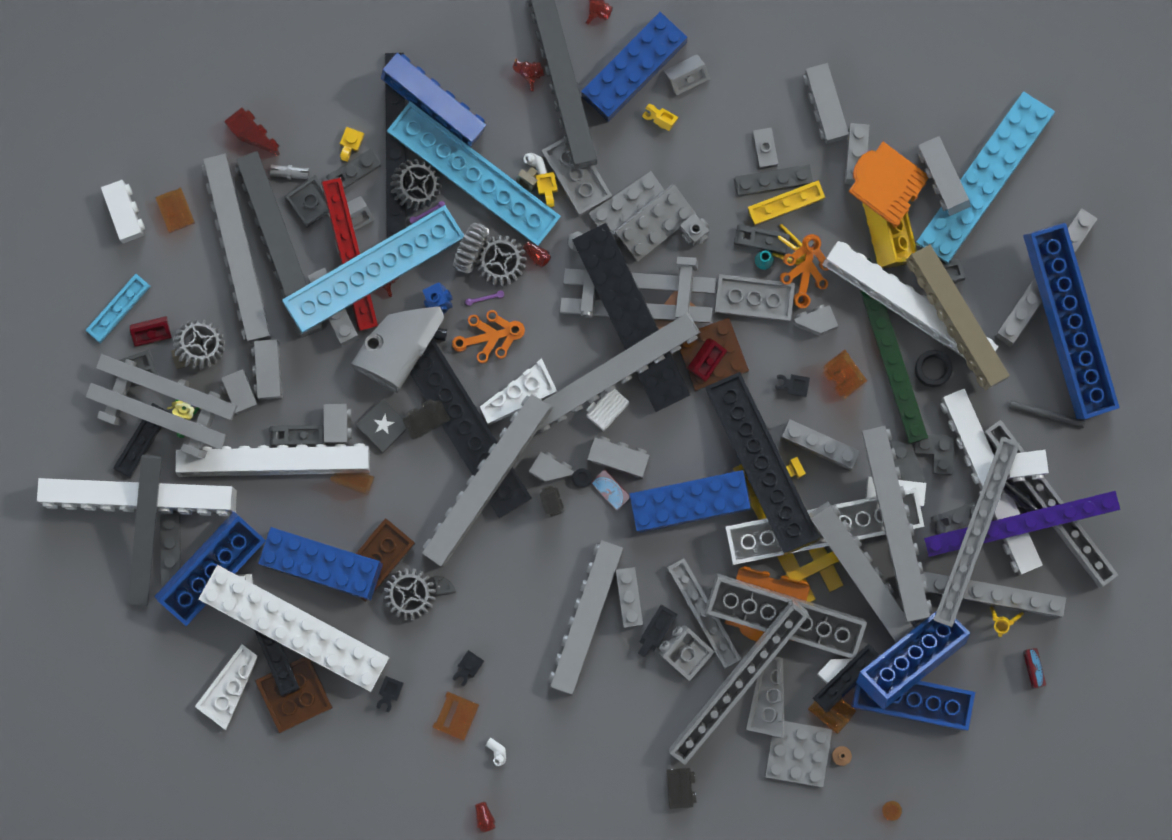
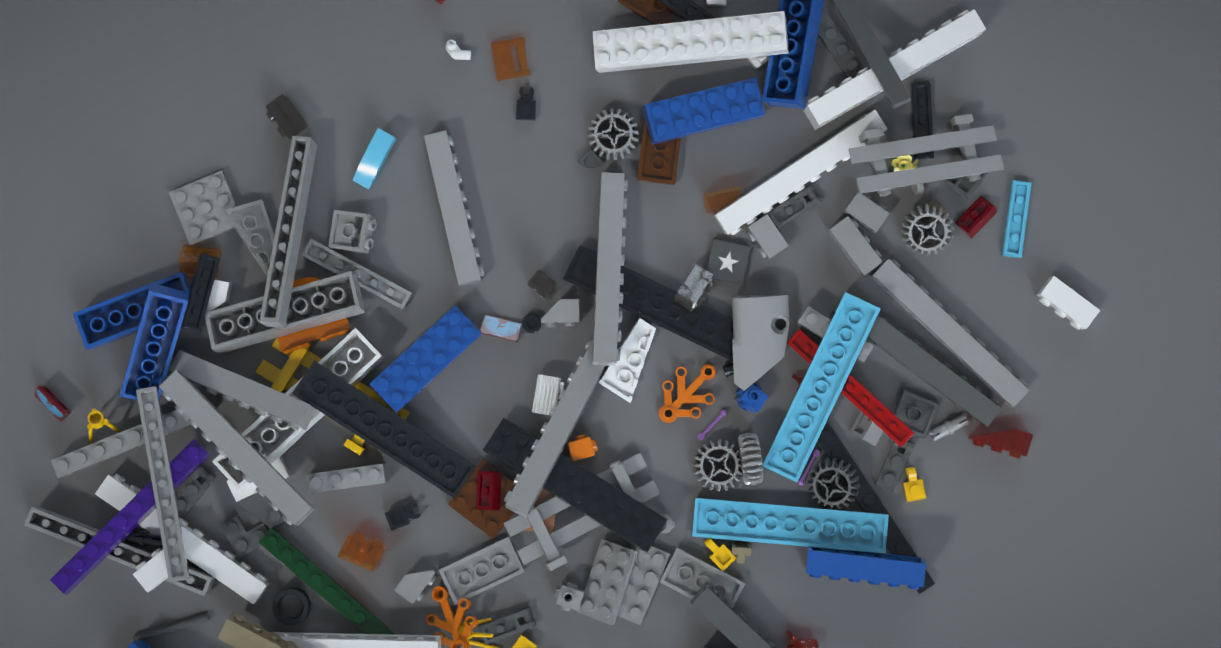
camera: 140 degrees right, 5 degrees up
(175, 210) = (1024, 332): clear orange plate -> none
(390, 690) = (577, 45): black plate -> none
(535, 161) = (743, 571): white arm -> none
(537, 254) = (689, 490): clear red cone -> none
(605, 346) = (582, 447): none -> orange brick
(618, 457) = (511, 360): light grey brick -> none
(627, 703) = (374, 158): none -> medium azure slope
(629, 597) = (427, 246): light grey brick -> none
(656, 629) = (388, 235): black hinge -> none
(761, 263) = (496, 604): teal cone -> none
(836, 756) = (173, 230): medium nougat tile -> none
(892, 810) = (99, 209): clear orange plate -> none

